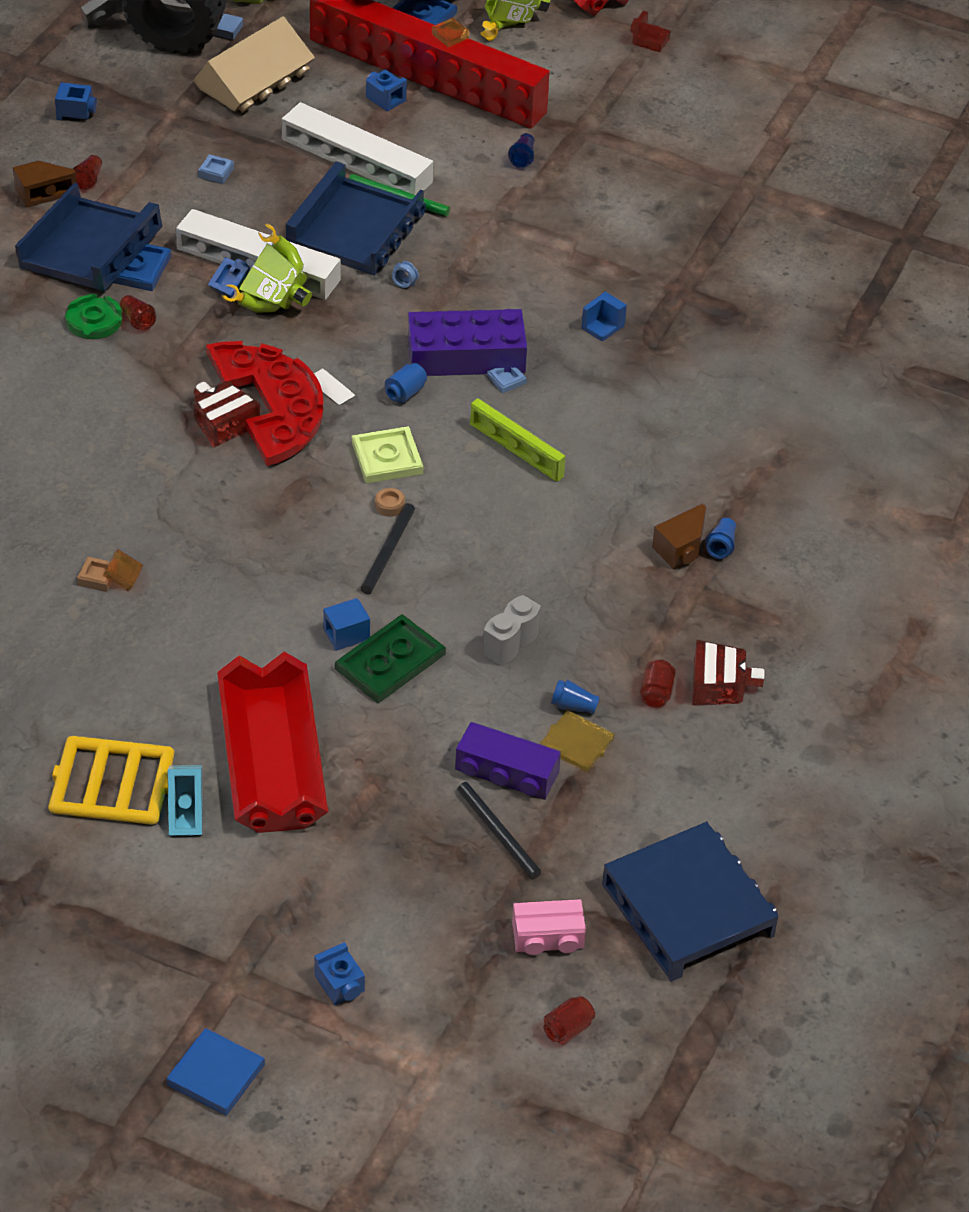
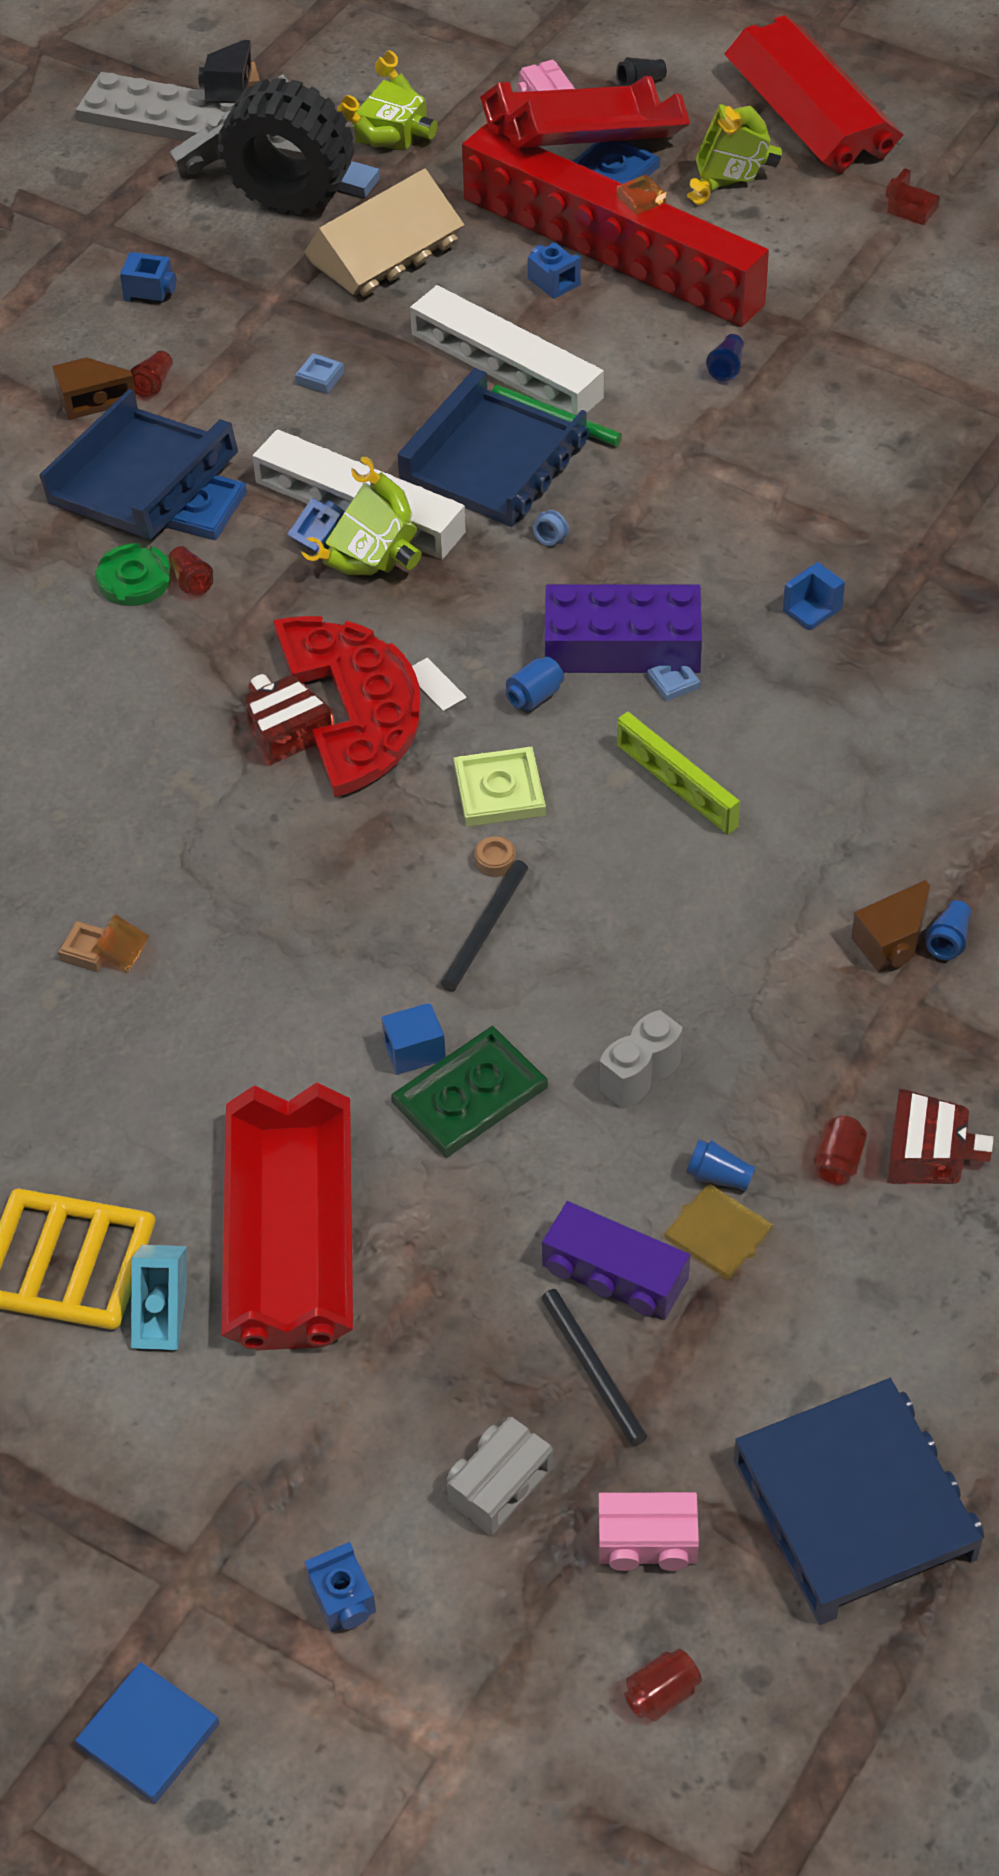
camera: 10 degrees right, 5 degrees up
(441, 898) = (499, 1474): none -> light grey brick

